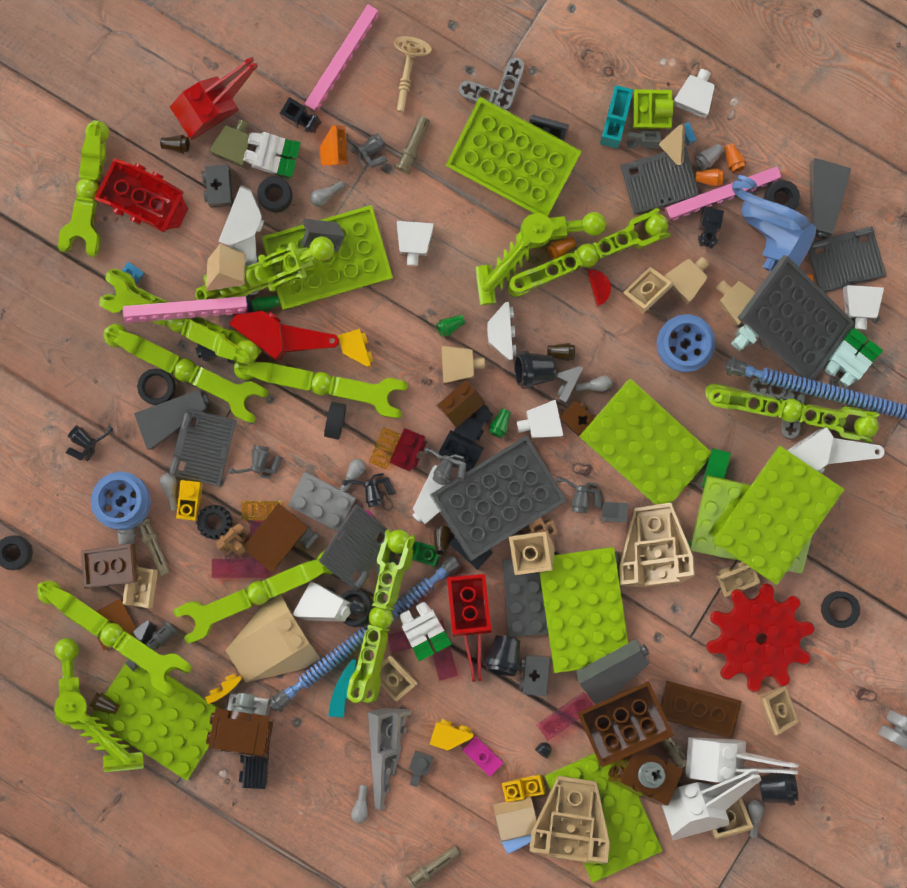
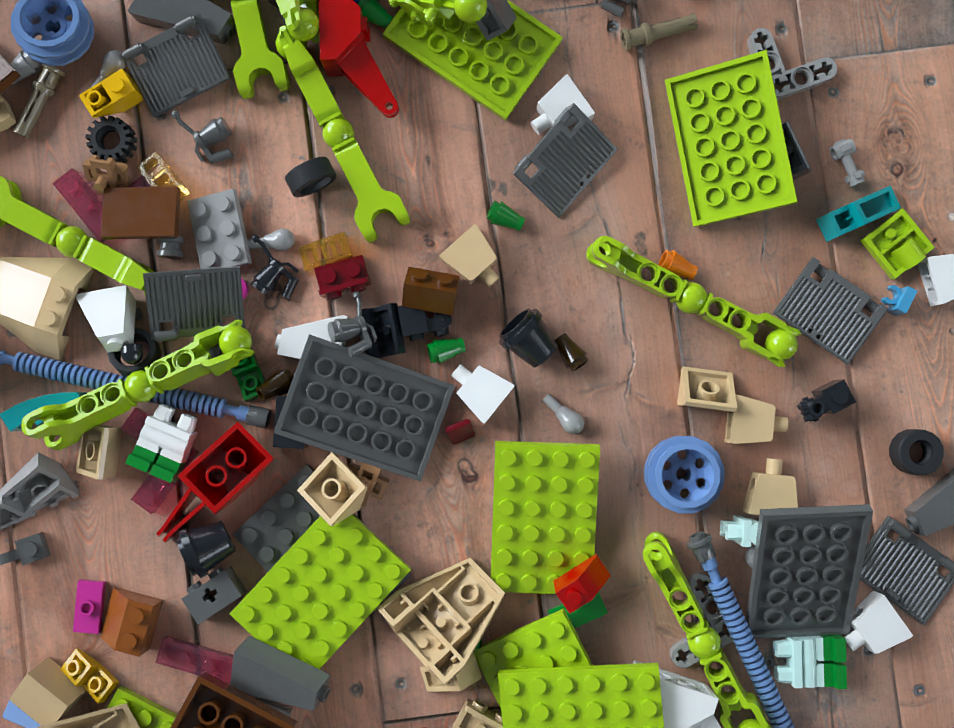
camera: 60 degrees right, 0 degrees up
(354, 347) = (403, 137): yellow slope -> none
(446, 263) = (565, 160): none -> dark grey window
(449, 736) = (81, 556): yellow slope -> none
(501, 332) = (540, 274): white slope -> none
(510, 738) = (130, 621): none -> dark orange slope
(534, 233) = (671, 227): lime piece -> none
(544, 749) = (145, 665): black hinge -> none
(555, 453) = (460, 431): none -> dark red slope
(570, 378) = (550, 380): light grey slope -> none
(571, 96) = (843, 150): none -> light grey bar
(571, 414) = (515, 414): reddish brown brick -> none
(581, 499) = (433, 495): dark grey piece -> none
(600, 286) = (670, 337): red plate -> none
(614, 512) = (446, 542): dark grey panel -> none
(647, 139) = (861, 263): dark grey plate -> none
(674, 144) = (886, 291): tan slope -> none
(700, 453) = (581, 583): none -> red slope
(700, 563) = (465, 678): none -> tan slope
(708, 157) = (894, 341): light grey cone -> none
(710, 177) = (876, 360): orange cone -> none
(718, 195) = (871, 387): bright pink piece -> none
(734, 158) = (916, 370): orange cone -> none
(784, 228) = (893, 468): medium blue hips -> none

